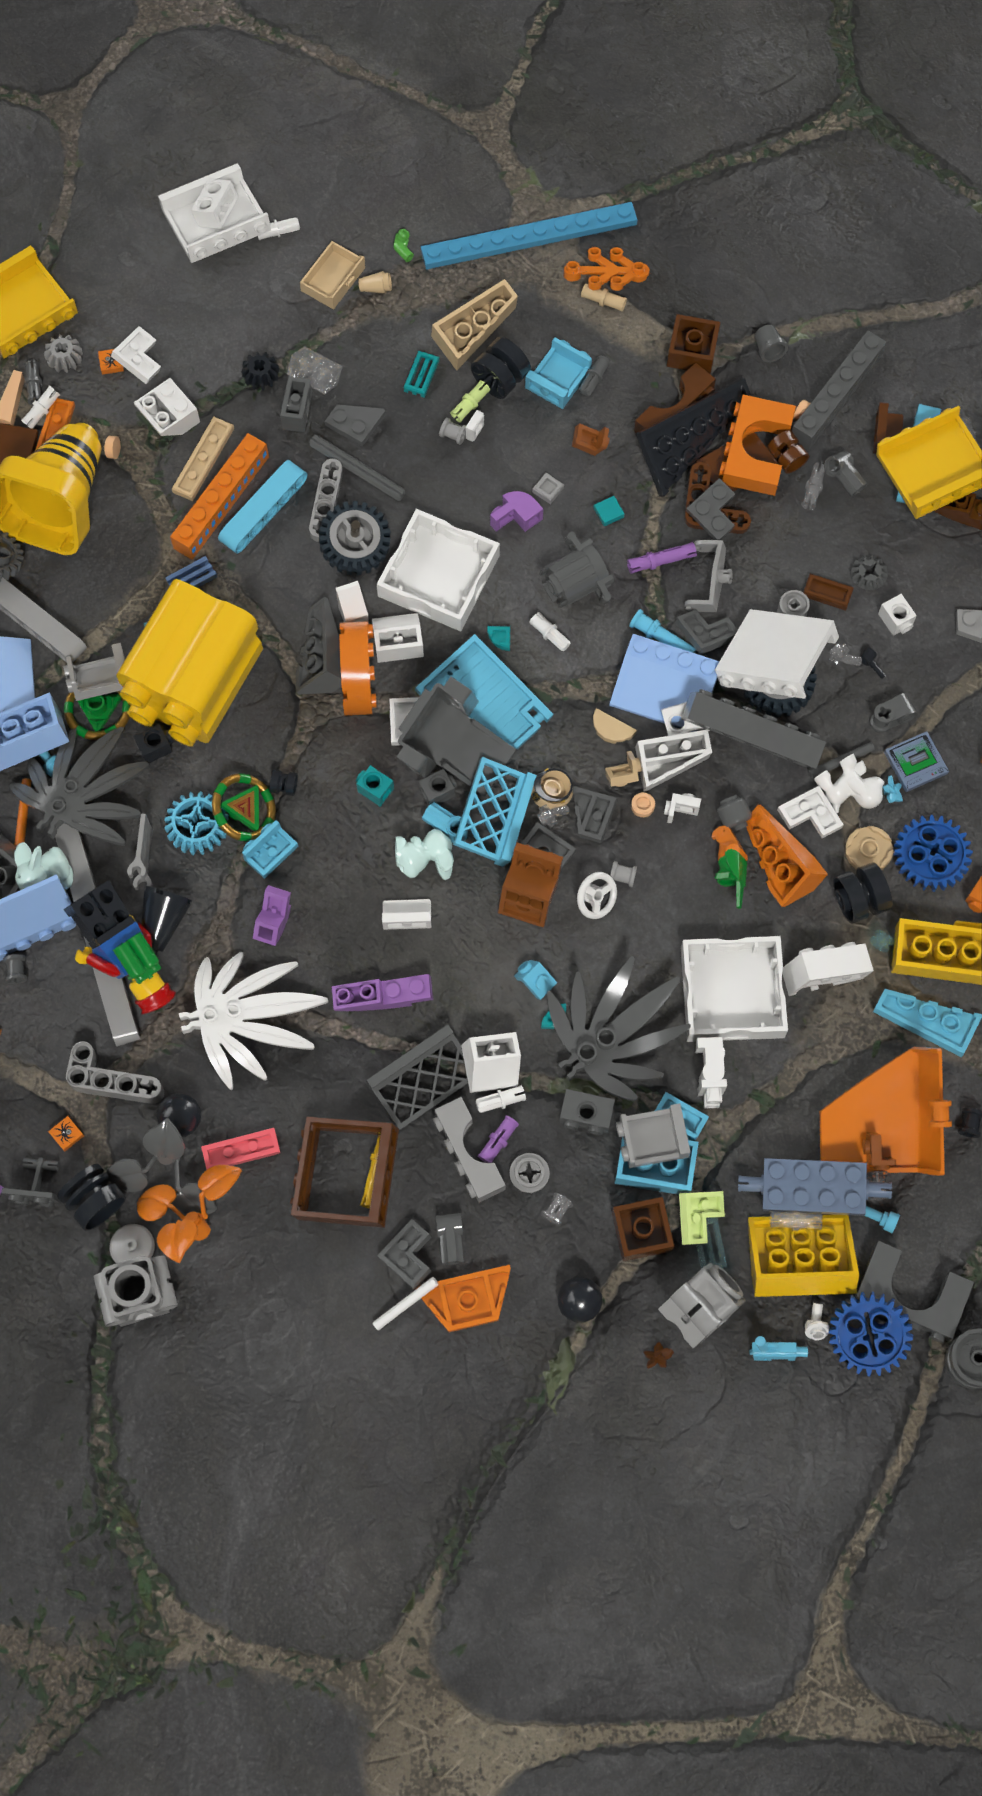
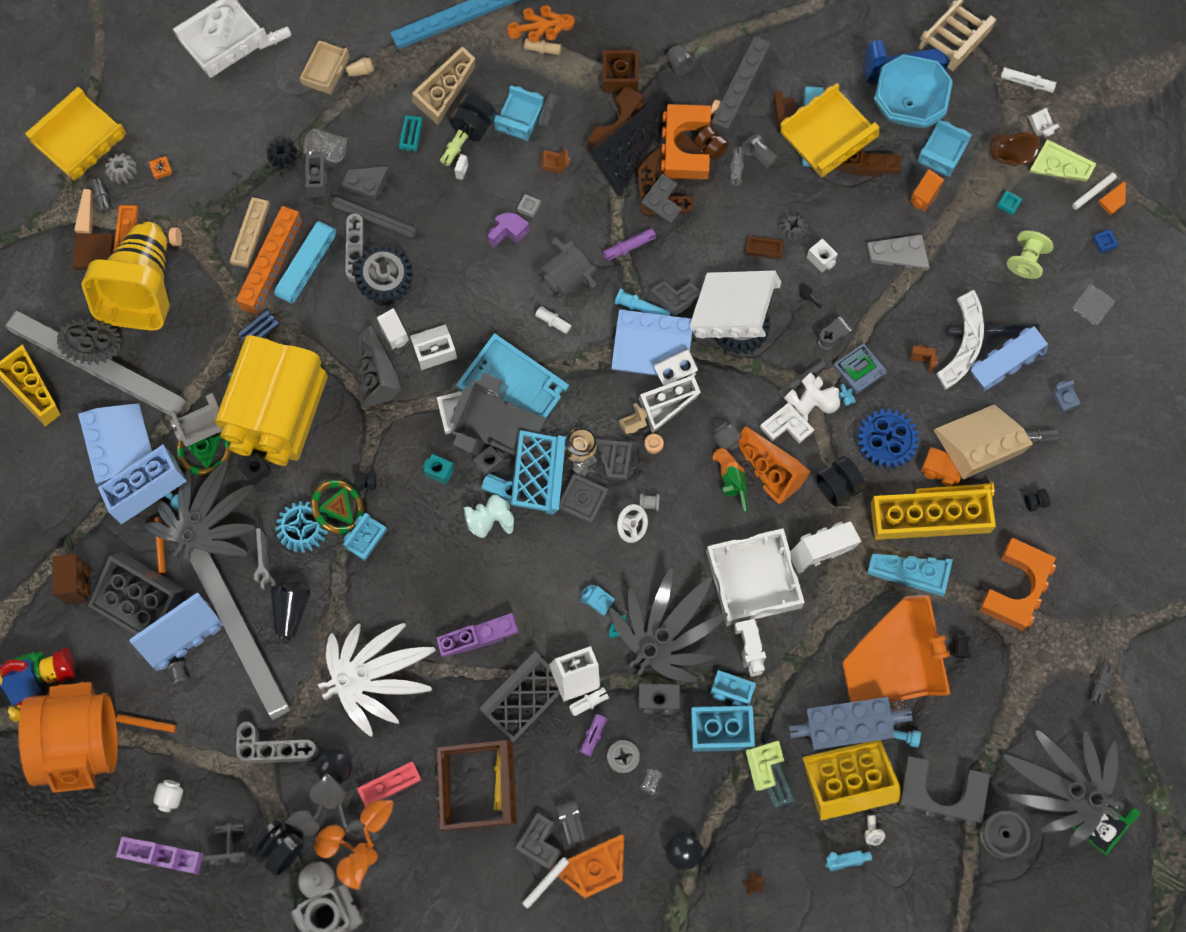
camera: 10 degrees left, 0 degrees up
(38, 867) = (183, 588): light aqua animal -> none
(40, 407) = (111, 215): white pin -> none
(66, 1133) = (245, 799): orange tile -> none
(119, 946) = (259, 639): piece -> none
(133, 356) = (177, 159): white plate -> none
(168, 409) = (214, 198): white slope -> none
(273, 916) = (378, 590): medium lavender brick -> none
(356, 668) = (405, 377): orange brick -> none
(401, 243) = (374, 33): bright green arm -> none
(406, 914) = (484, 567): white panel -> none
(438, 570) = (455, 287): white tile -> none
(453, 431) = (444, 174): light grey bush -> none
(482, 1178) = (587, 768): light grey arch -> none
(500, 636) = (514, 331): teal tile -> none
(530, 884) = (578, 525): dark orange bracket -> none
(609, 511) = (580, 215): teal tile -> none
(611, 729) = (617, 388): tan tile -> none
(642, 1229) = (722, 784): reddish brown brick -> none
(653, 1137) = (716, 709): light grey panel -> none
(683, 803) = (687, 436): white bracket -> none
(703, 1303) = (782, 835): light grey piece -> none
(719, 576) = (677, 251): light grey piece -> none
(753, 730) = (729, 368): dark grey brick -> none
(794, 603) = (740, 262): light grey wheel -> none
(796, 1220) = (841, 752): clear pin -> none
(840, 653) = (784, 294): clear plate -> none
(847, 1337) = (935, 825): blue gear -> none
(869, 846) = (837, 443): tan tile -> none
(873, 1149) = (889, 683): dark orange bracket -> none
(881, 941) = (862, 516): clear light blue bush -> none

